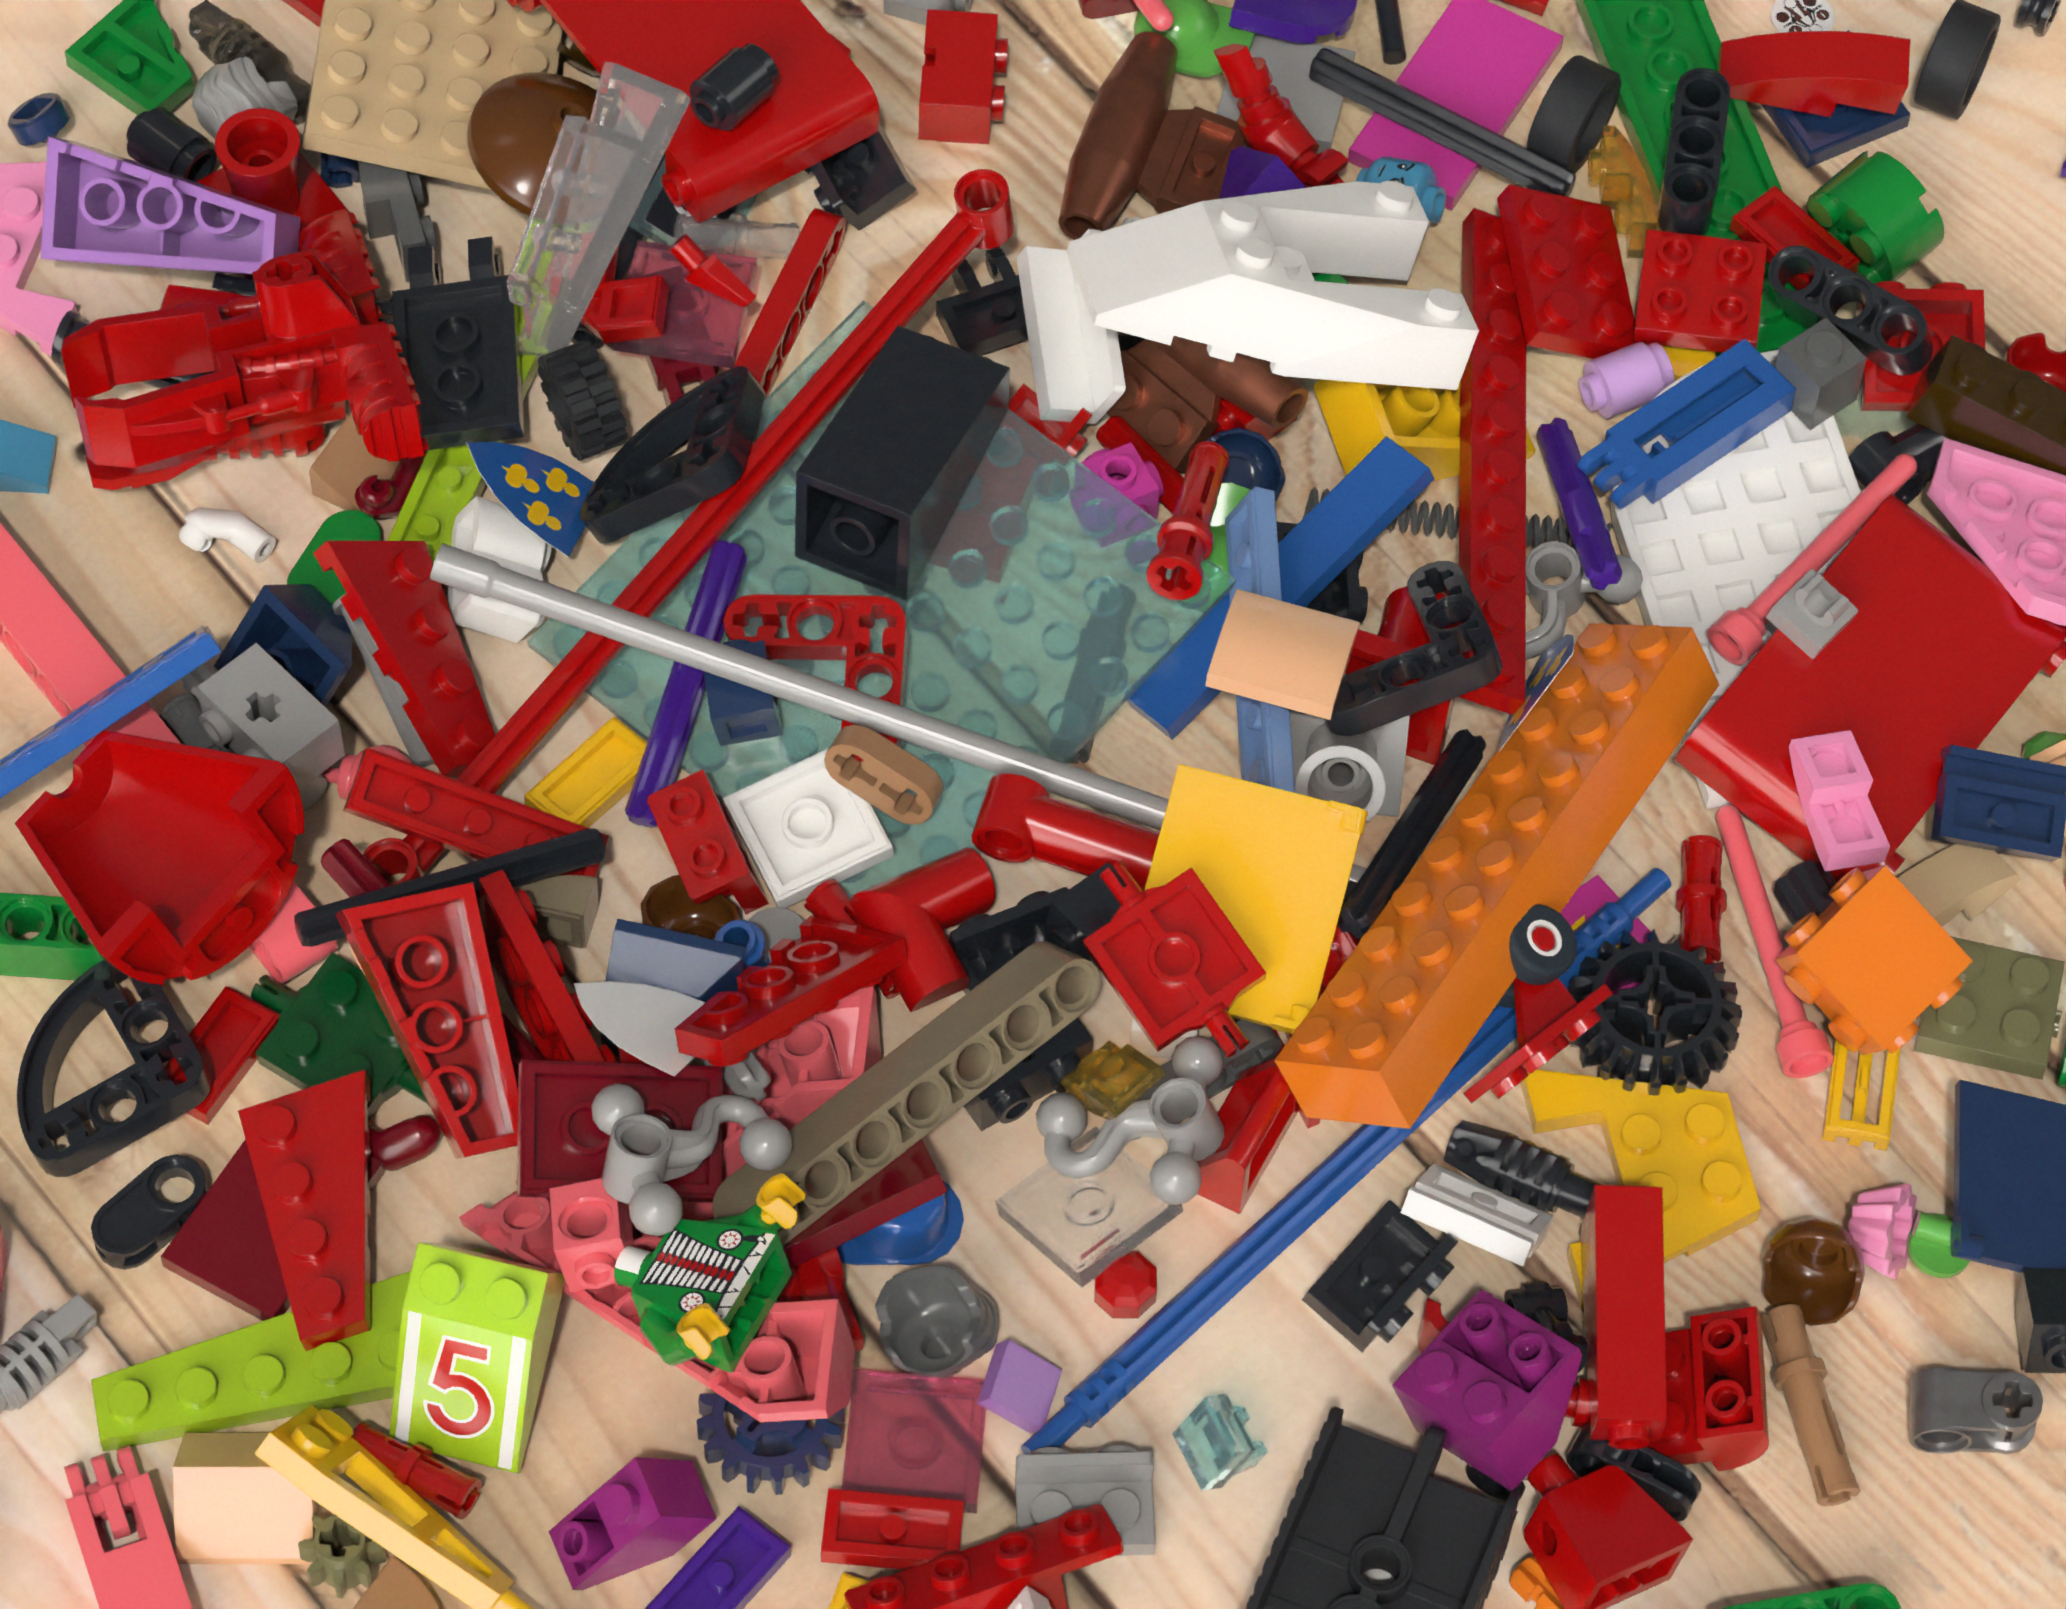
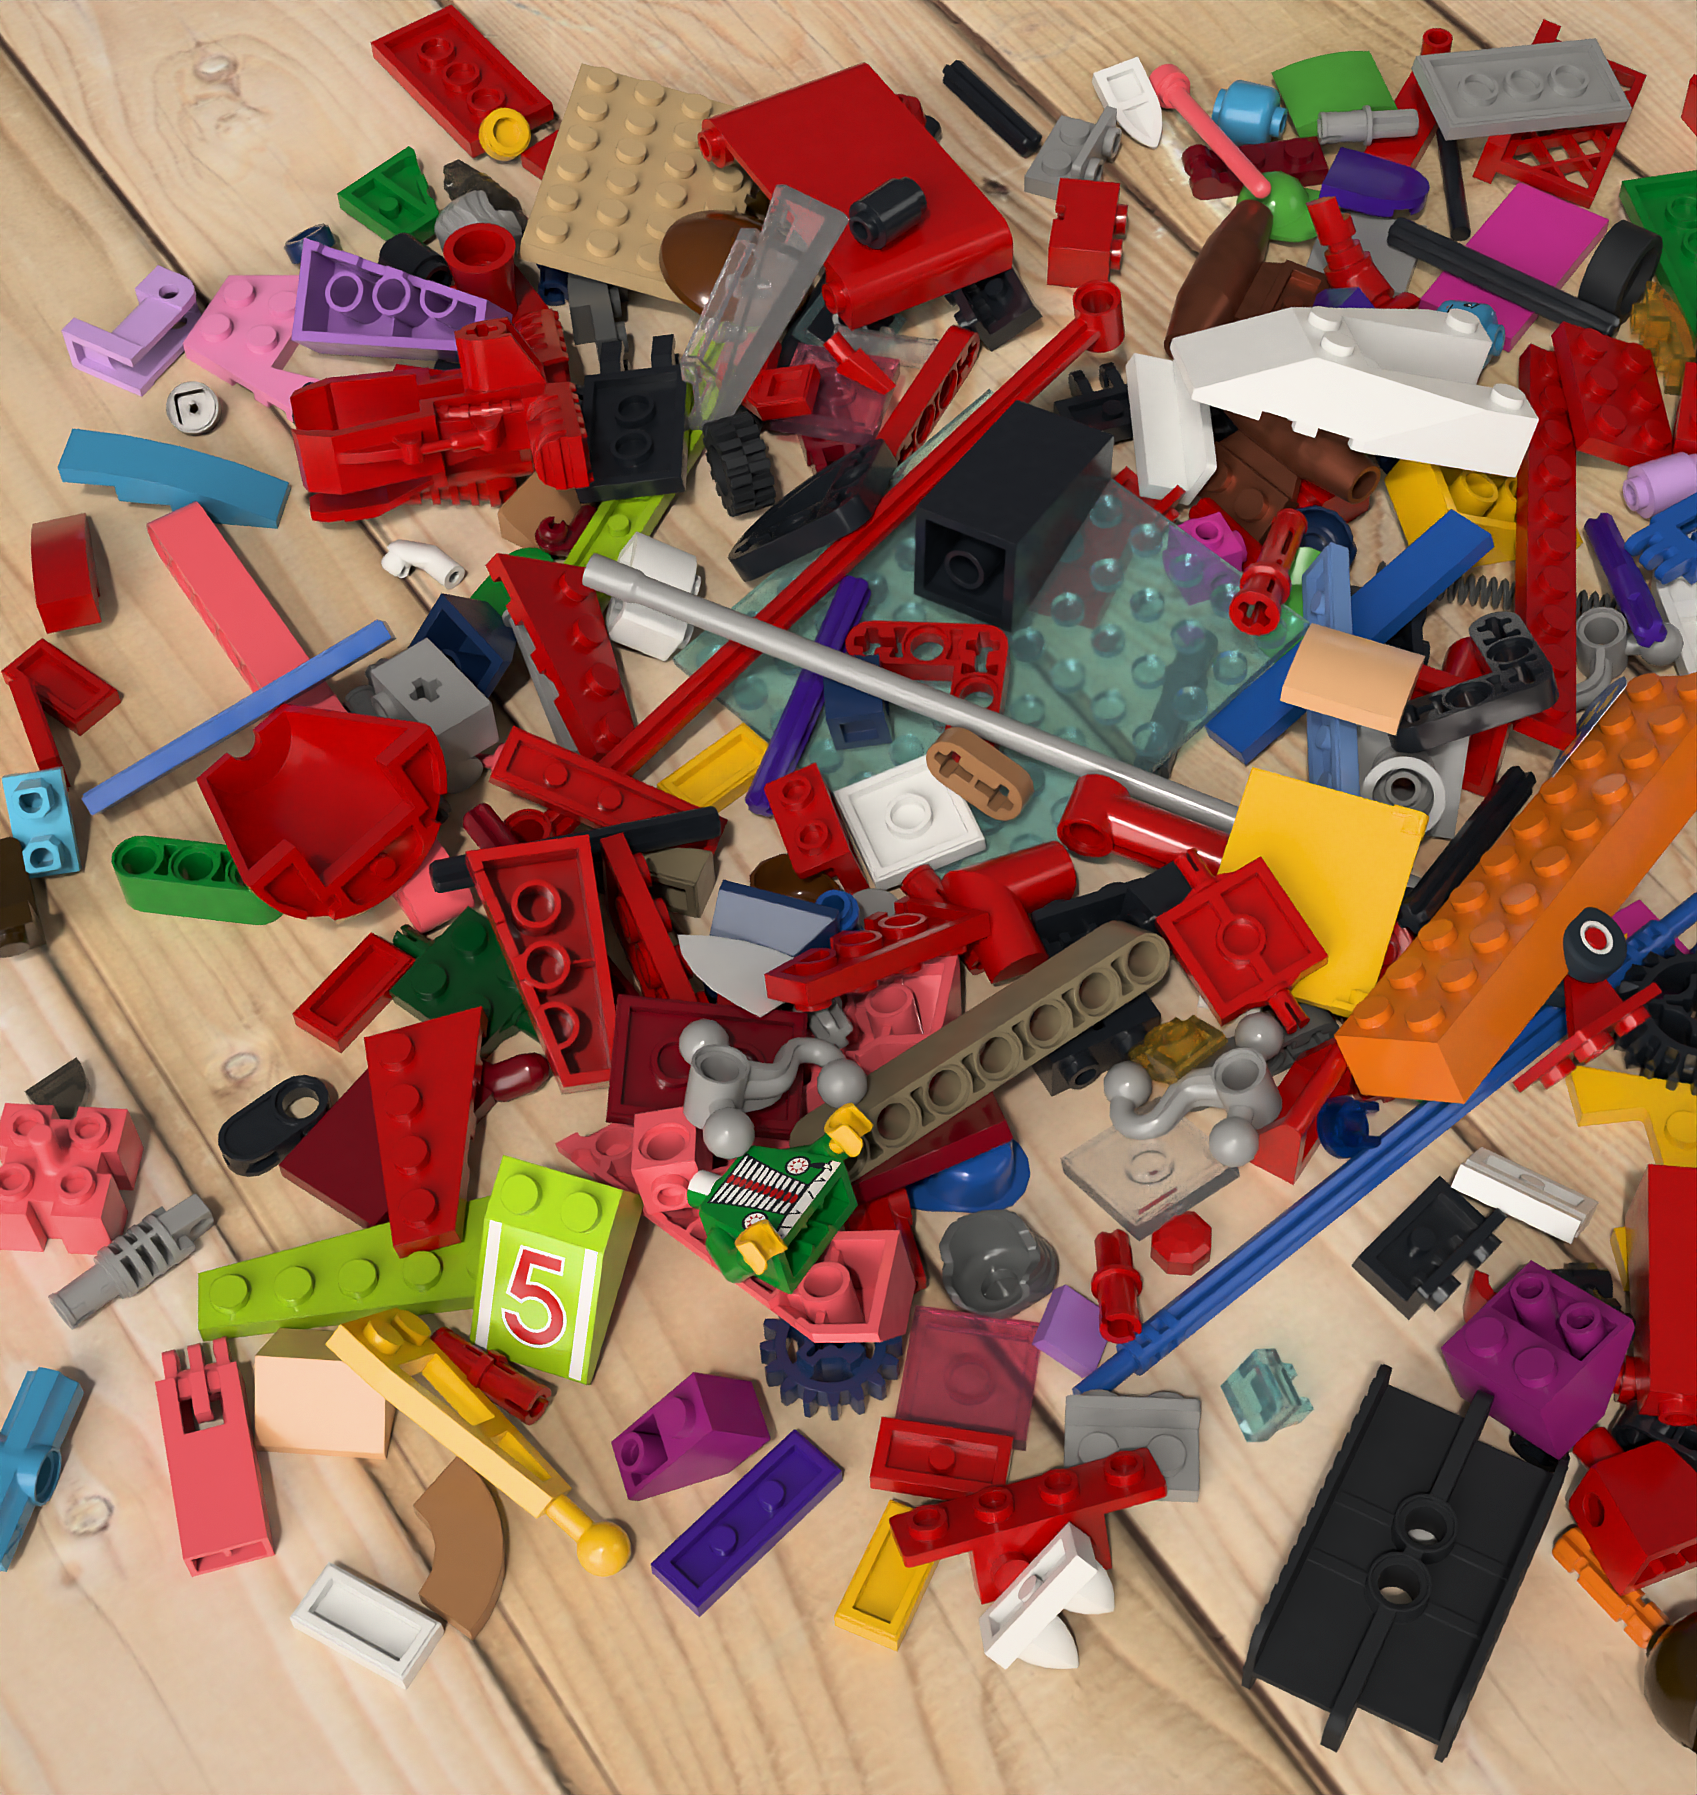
camera: 10 degrees right, 5 degrees down
(143, 1082) = (286, 1009): black beam -> none
(337, 1571) = (406, 1452): olive gear -> none
(535, 490) = (690, 534): blue sticker -> none
(1061, 1337) = (1116, 1288): none -> red axle
(1291, 1151) = (1345, 1127): none -> clear blue plate
(1519, 1168) = (1566, 1156): black hinge -> none

